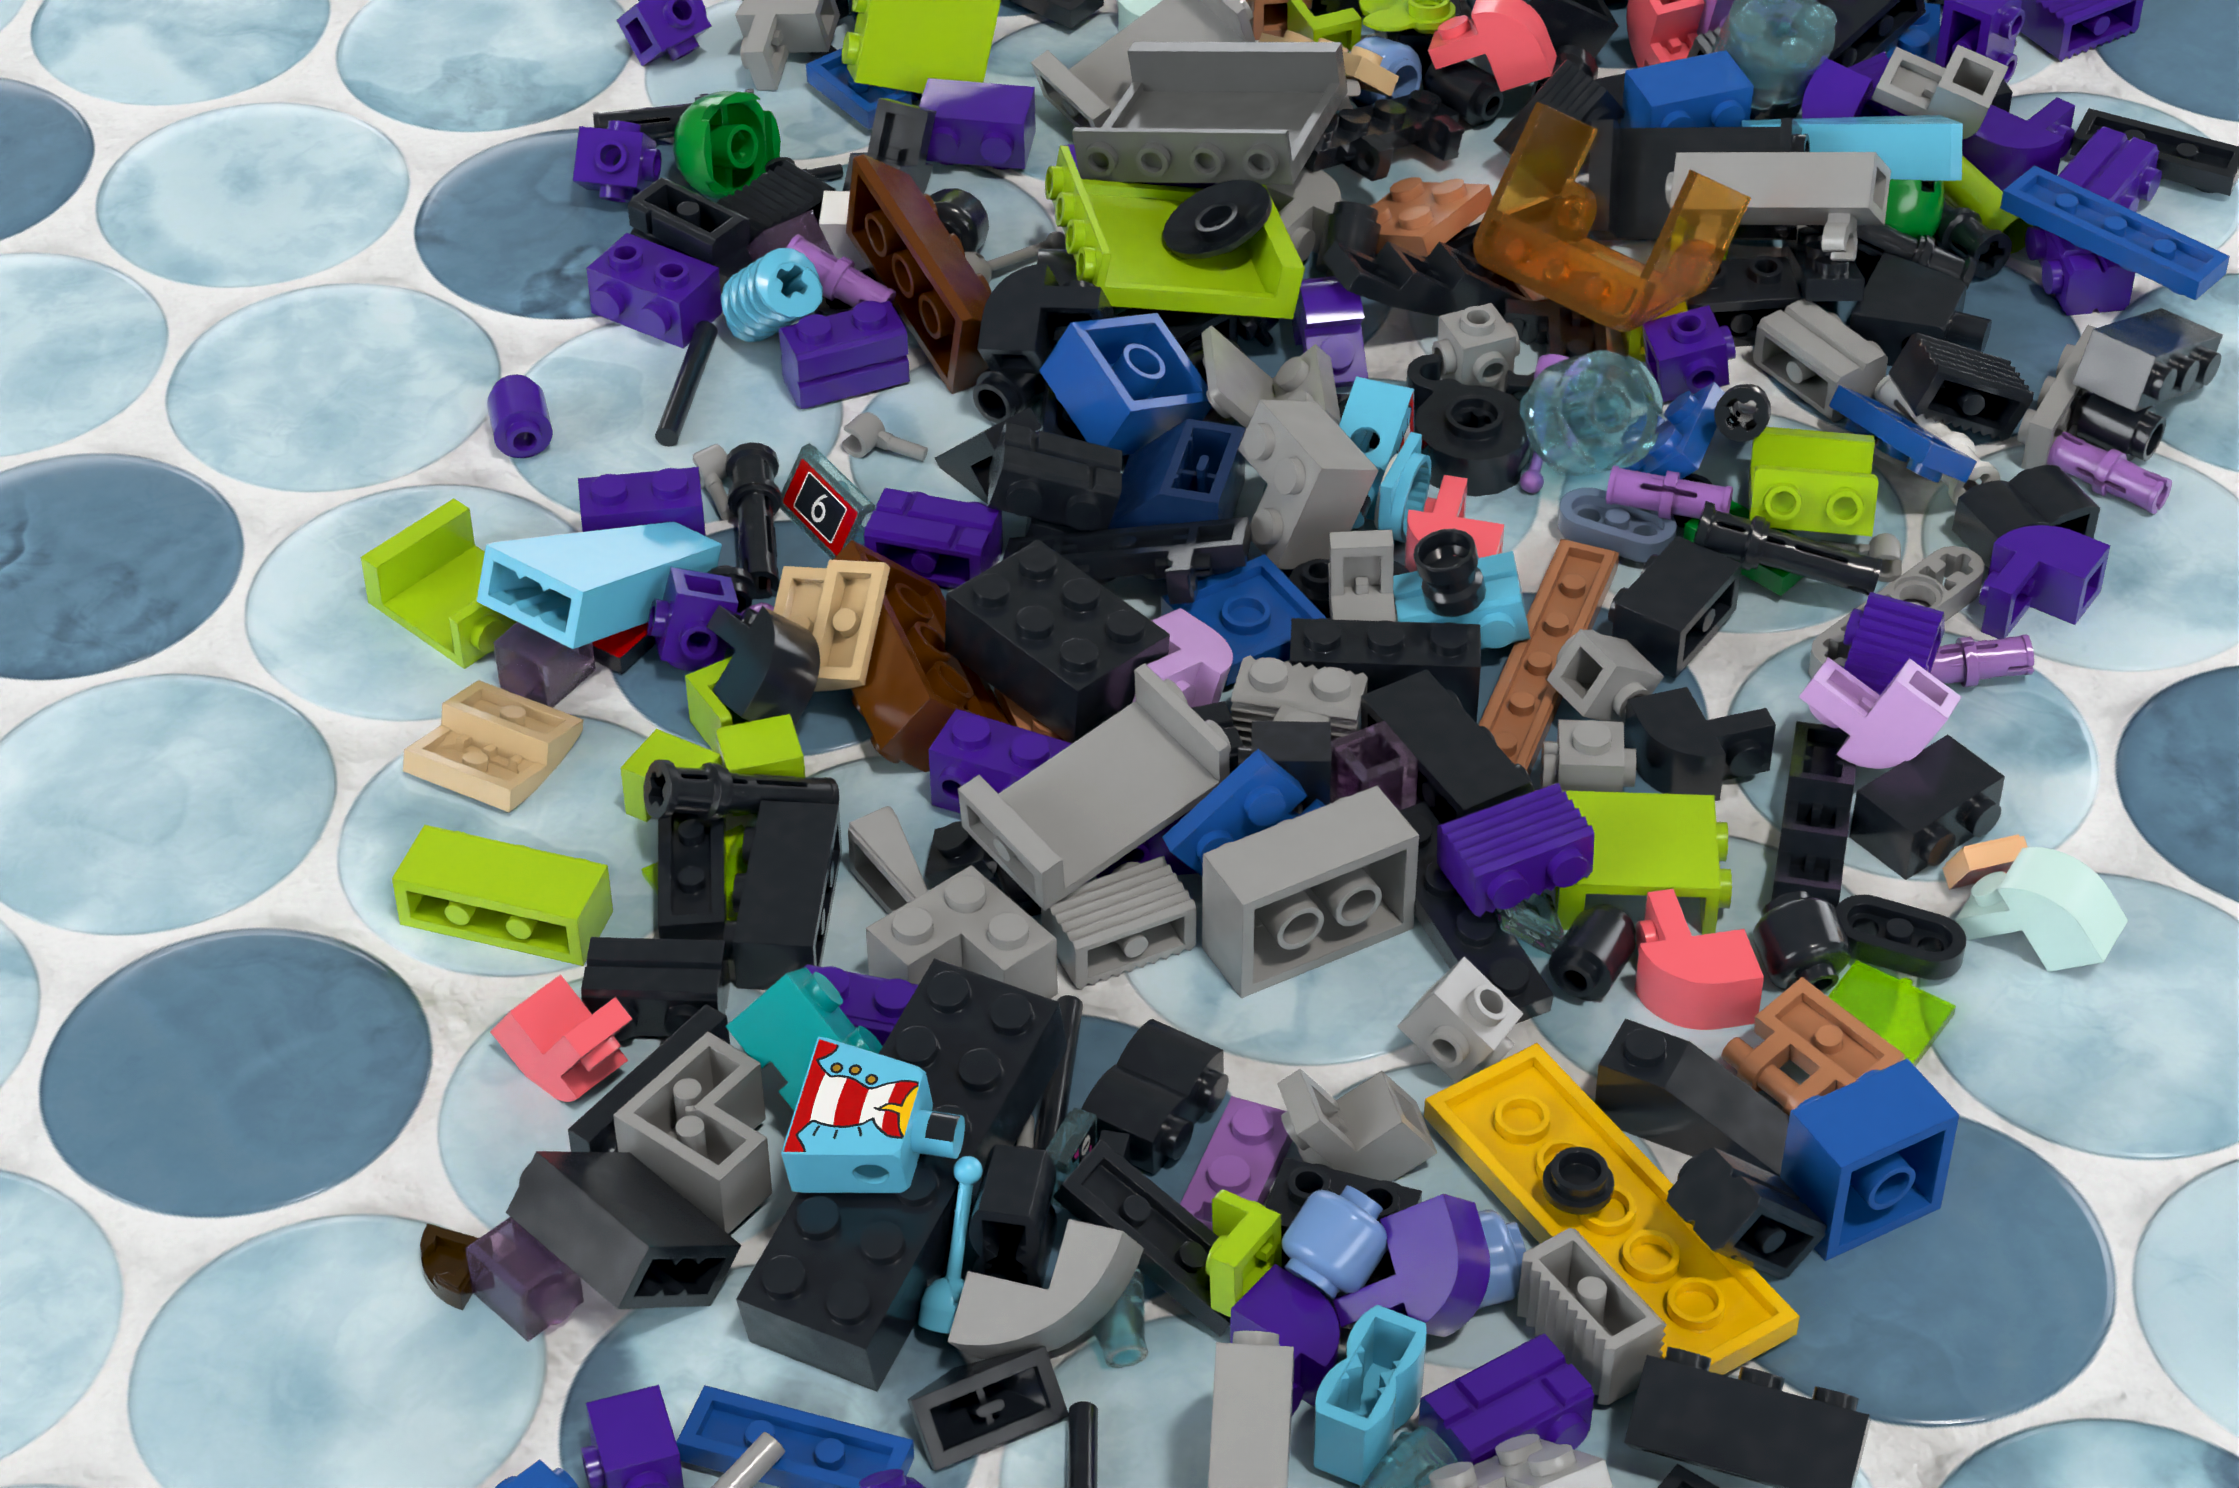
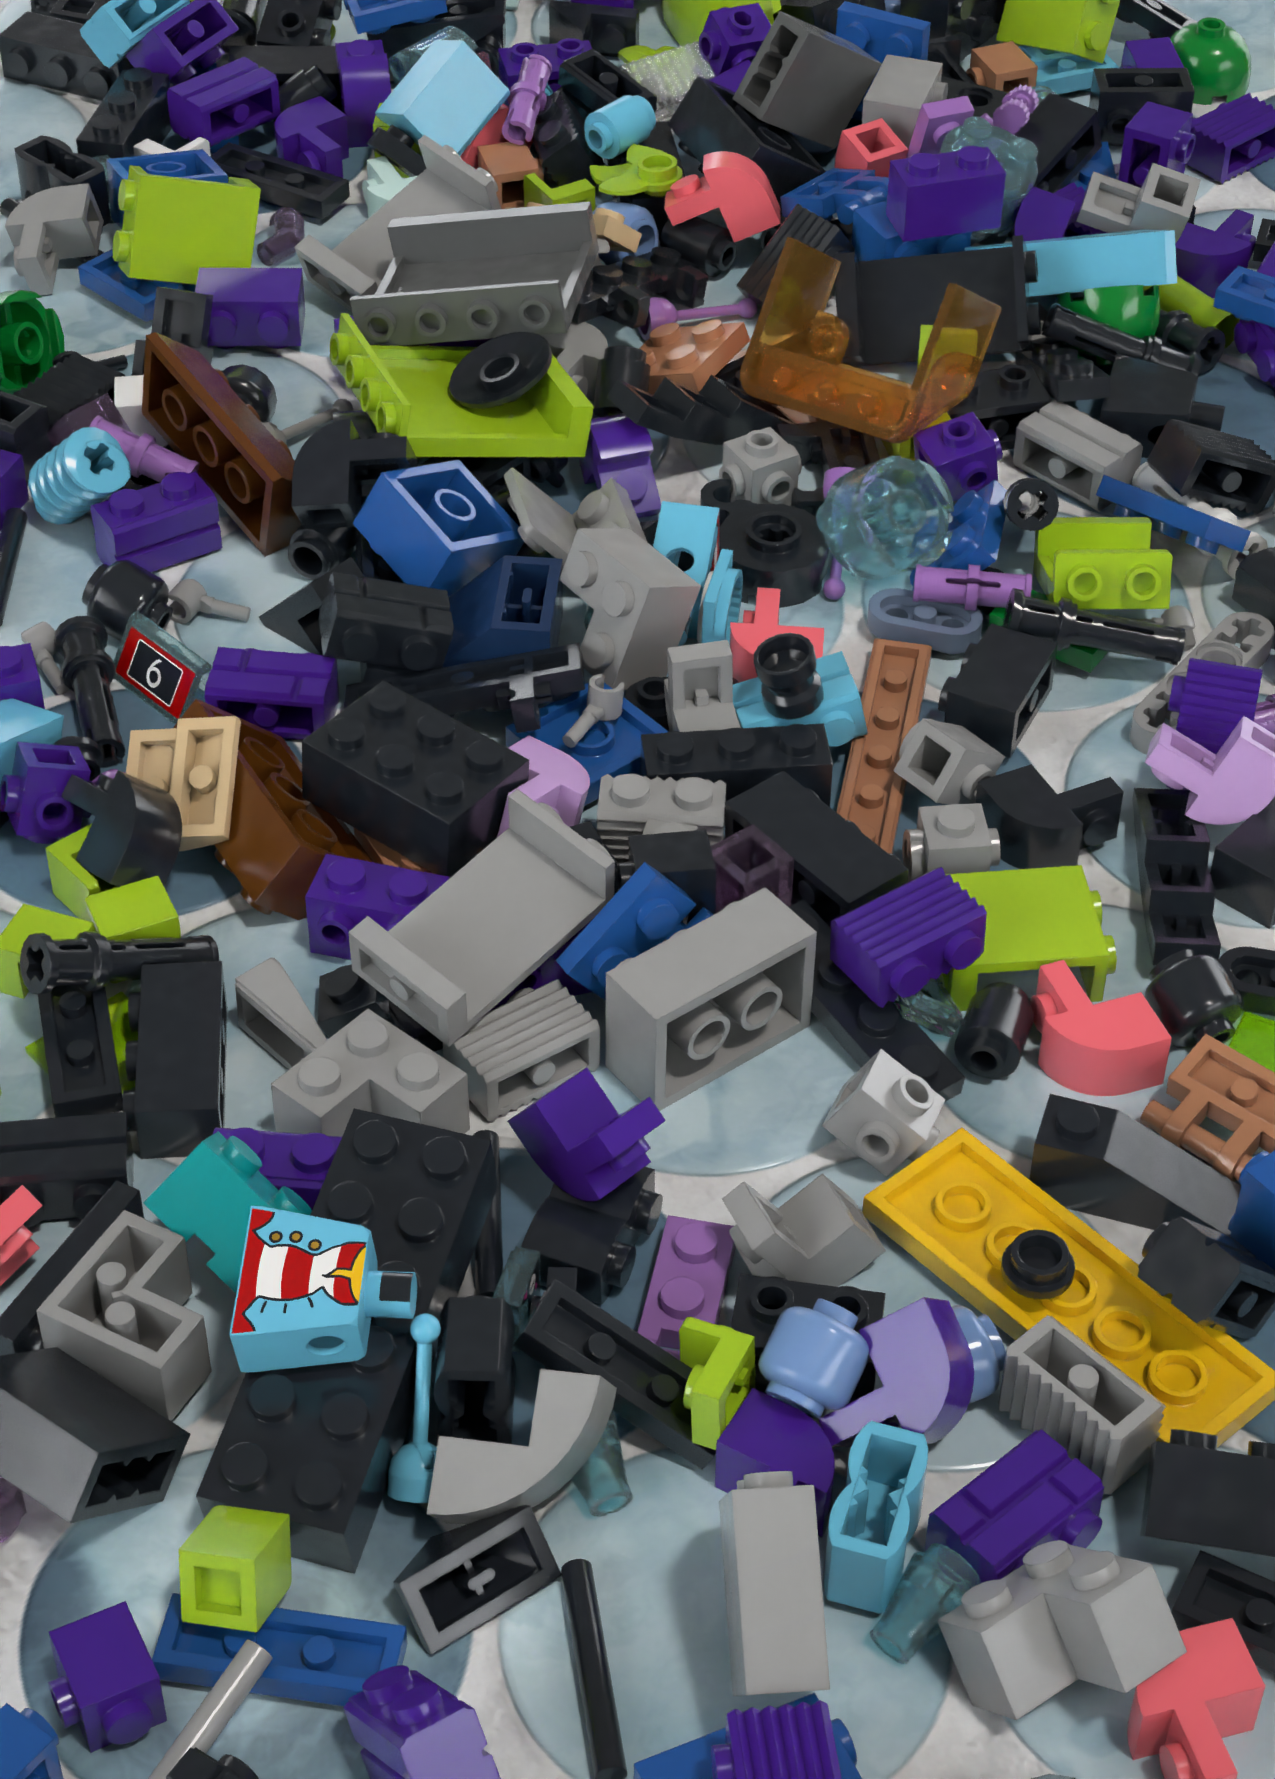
camera: 10 degrees left, 0 degrees up
(763, 1367) = (235, 1568): none -> lime panel
(802, 419) = (122, 590): none -> black head
(1032, 41) = (288, 233): none -> clear purple arm
(1154, 1011) = (584, 1139): none -> dark purple brick
(1261, 584) = (601, 705): none -> light grey hand
(1409, 163) = (664, 312): none -> medium lavender hinge
(1623, 46) = (837, 192): none -> blue plate
(1722, 63) = (945, 193): none -> dark purple brick
(1799, 190) = (1038, 299): light grey brick -> none

